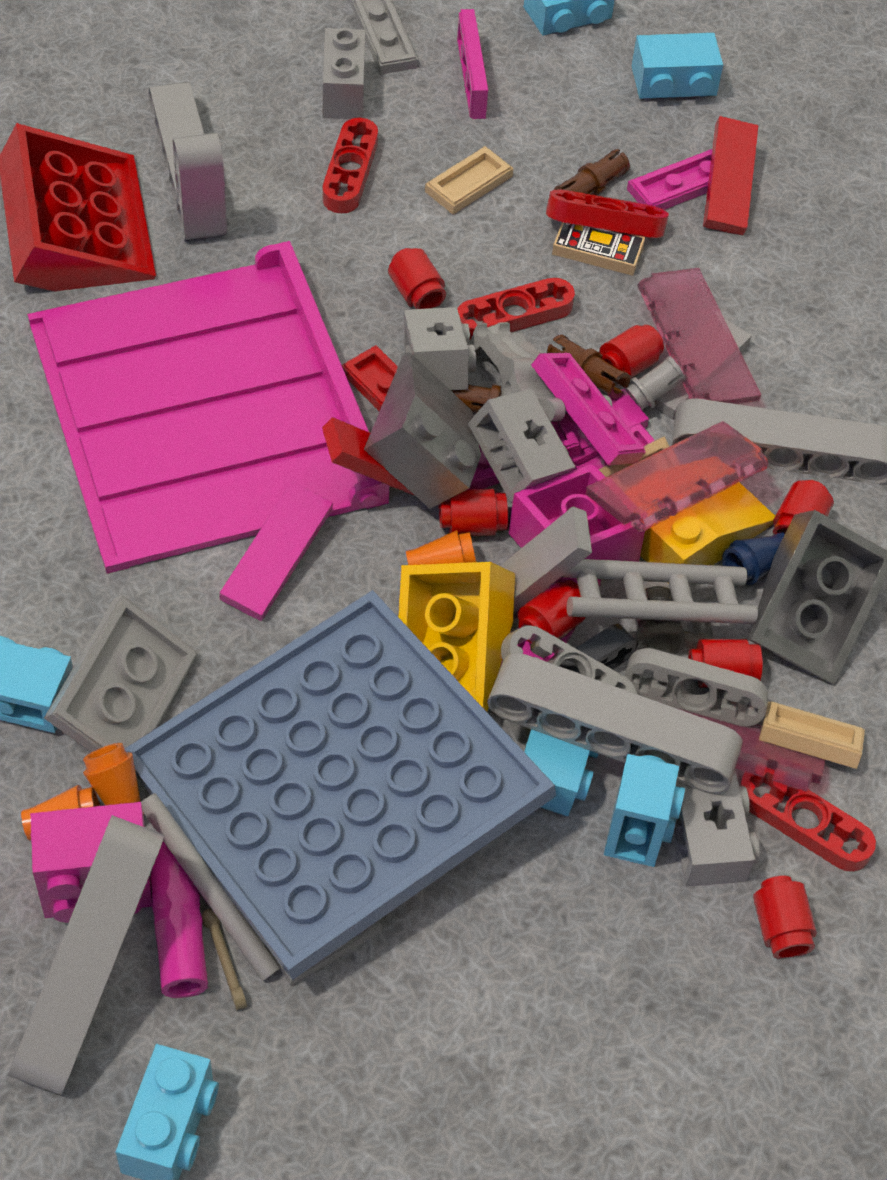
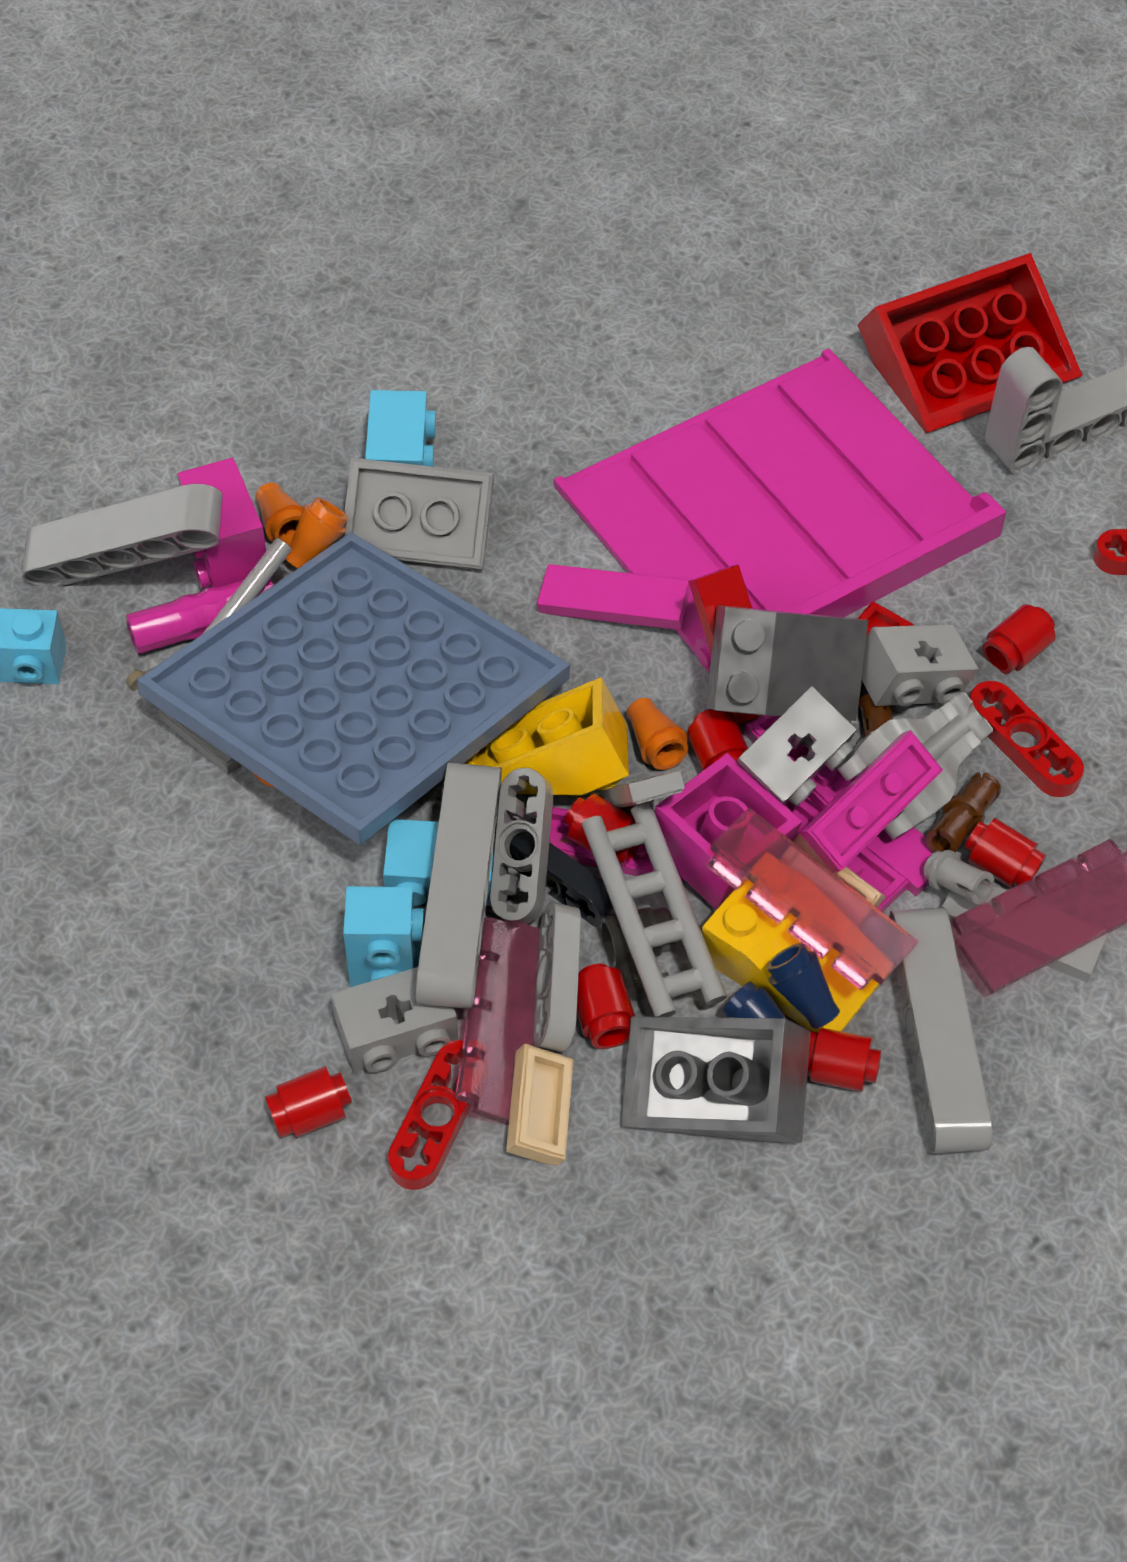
camera: 80 degrees right, 0 degrees up
(748, 505) = (801, 981): none -> dark blue cone

